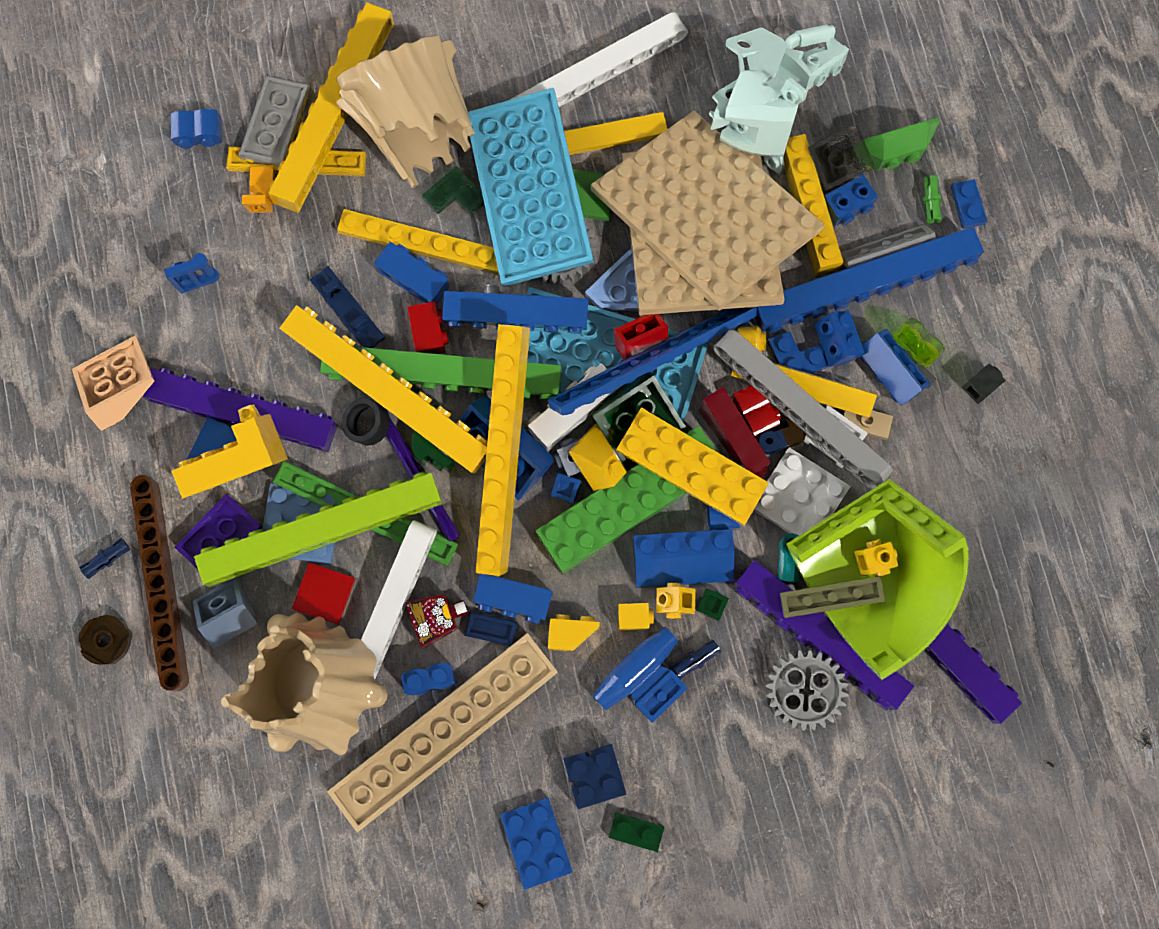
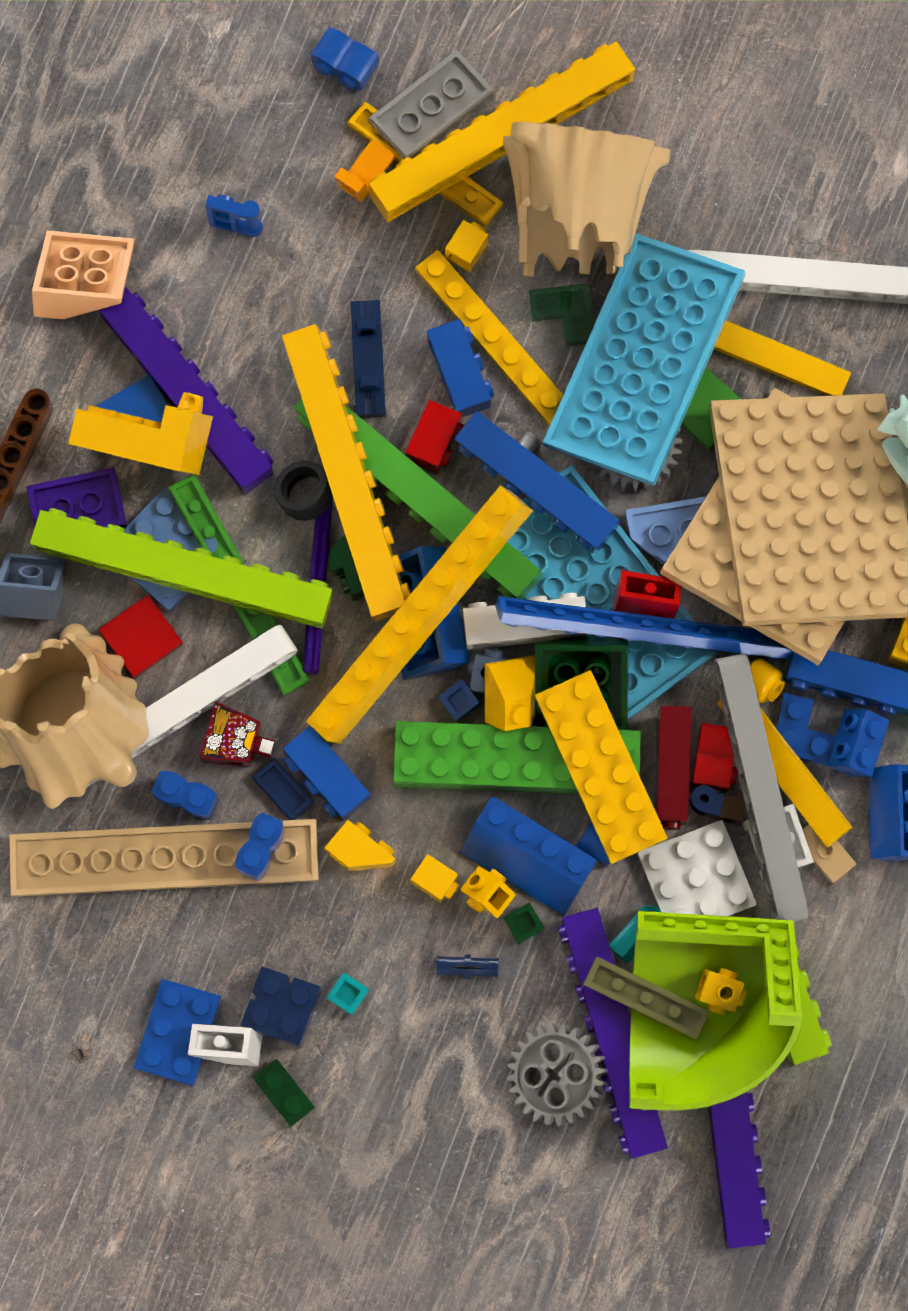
camera: 35 degrees right, 0 degrees up
(361, 193) = (467, 245): none -> yellow brick
(503, 671) = (264, 839): none -> blue brick
(575, 829) = (225, 1044): none -> white slope
(631, 734) = (348, 993): none -> teal plate
(642, 676) = (400, 946): blue plate -> none

